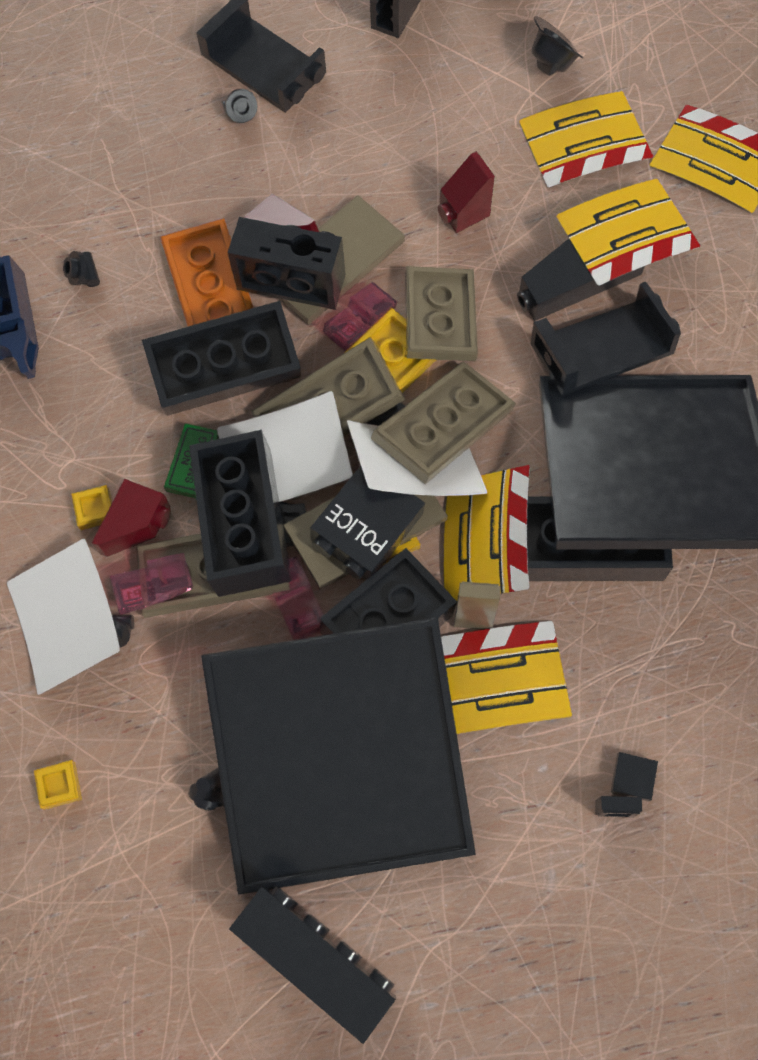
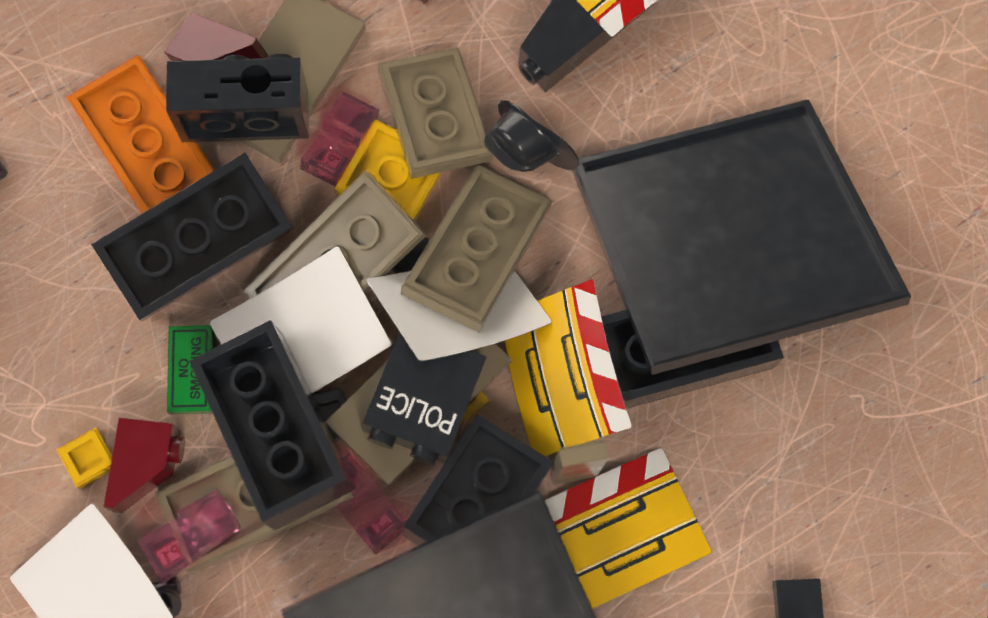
camera: 25 degrees left, 5 degrees up
(507, 351) = (525, 143): none -> black piece
(606, 342) = (637, 101): black panel -> none

